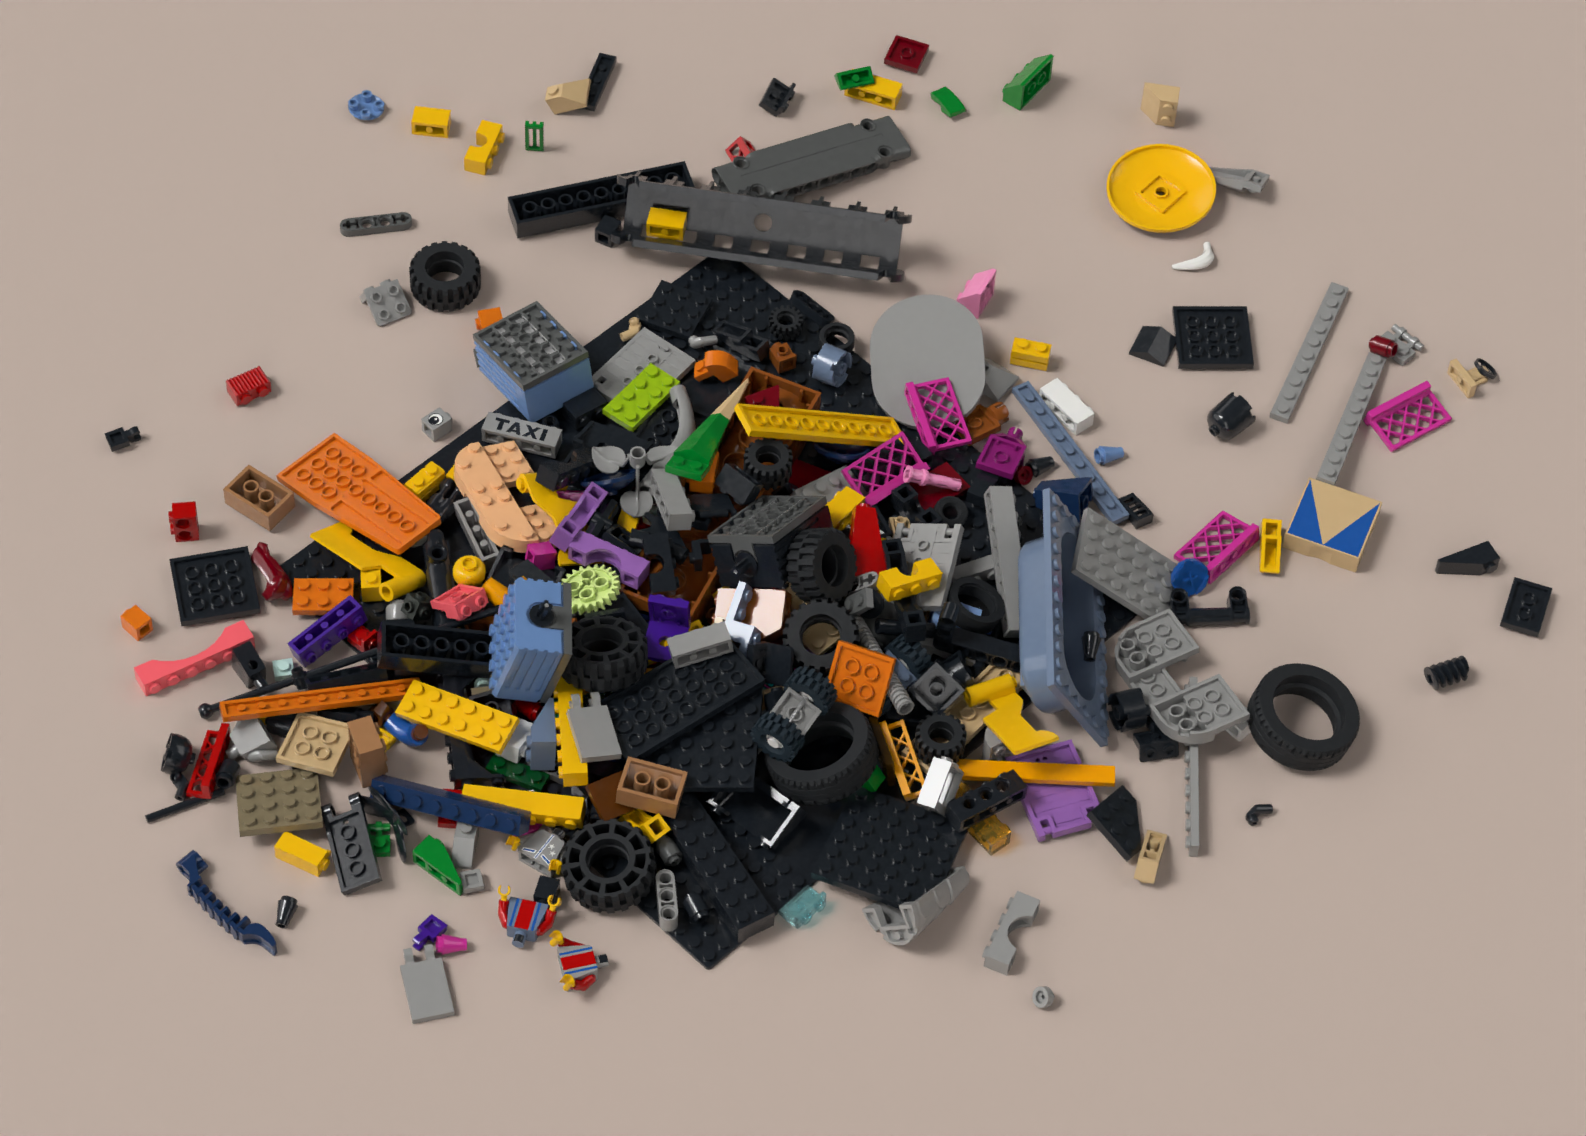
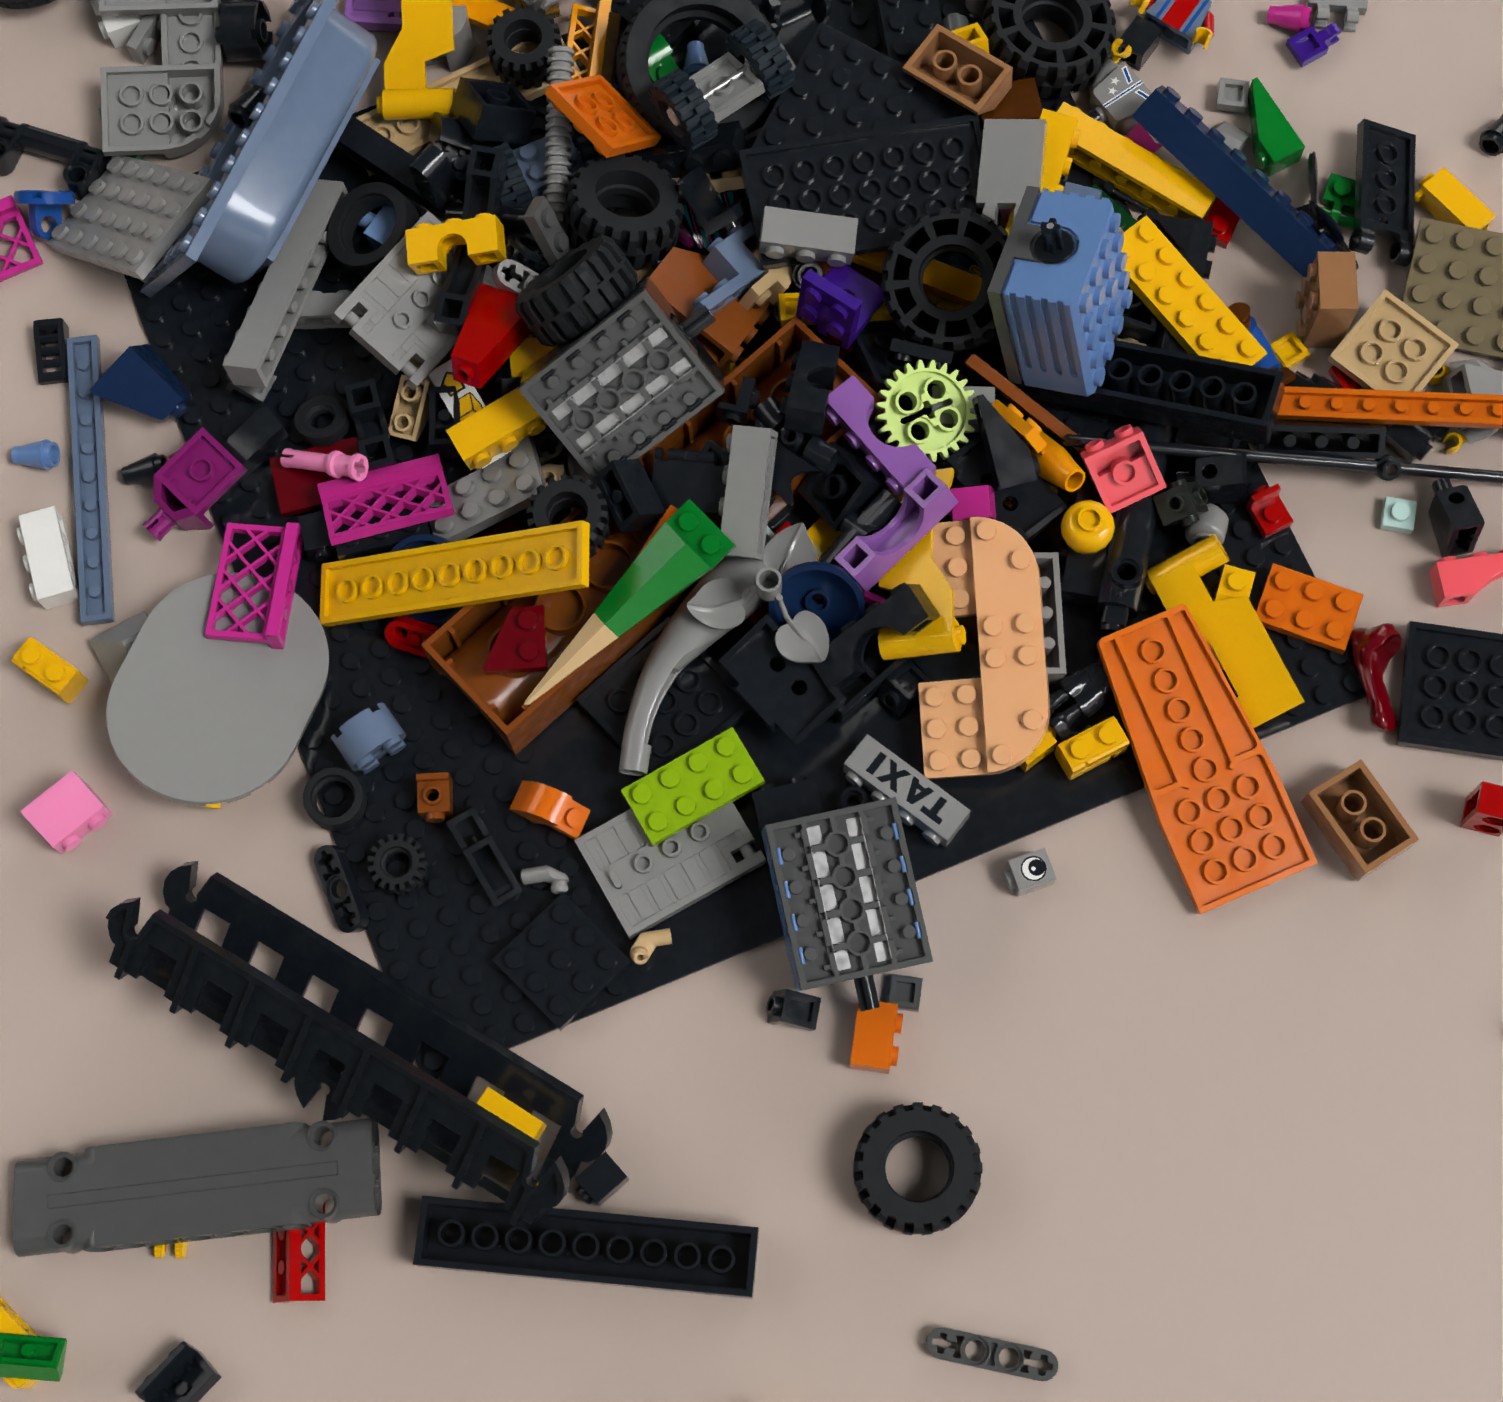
camera: 150 degrees left, 20 degrees up
(248, 386) = (1313, 1061): red brick -> none
(327, 631) = (1323, 529): dark purple brick -> none
(386, 302) = (1032, 1165): light grey bracket -> none
(985, 421) = (182, 565): dark orange plate -> none

